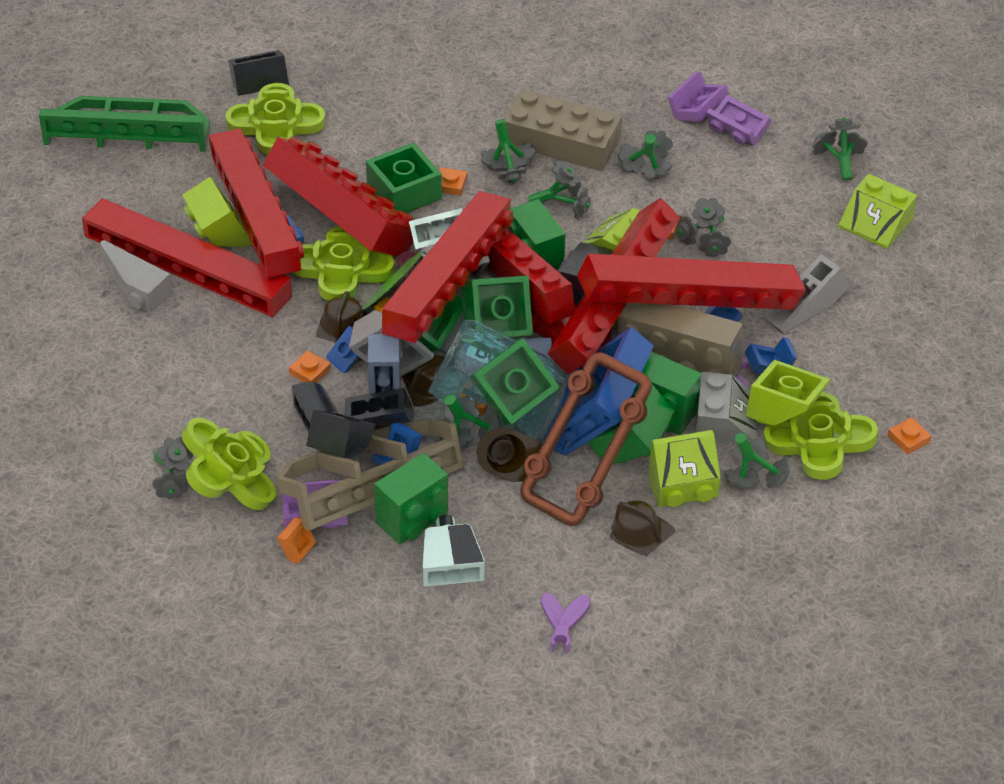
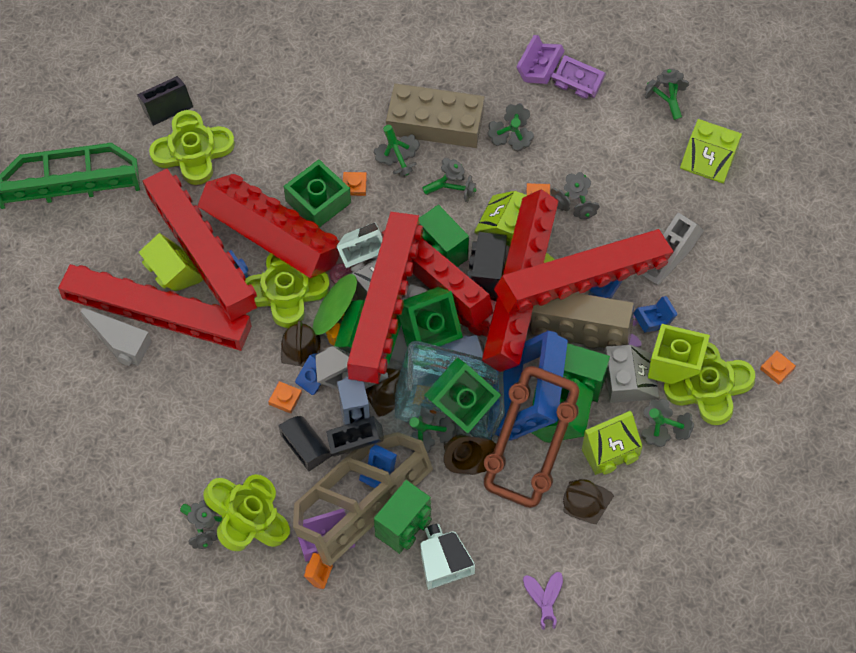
camera: 10 degrees left, 15 degrees up
(339, 433) = (331, 469): black brick -> none

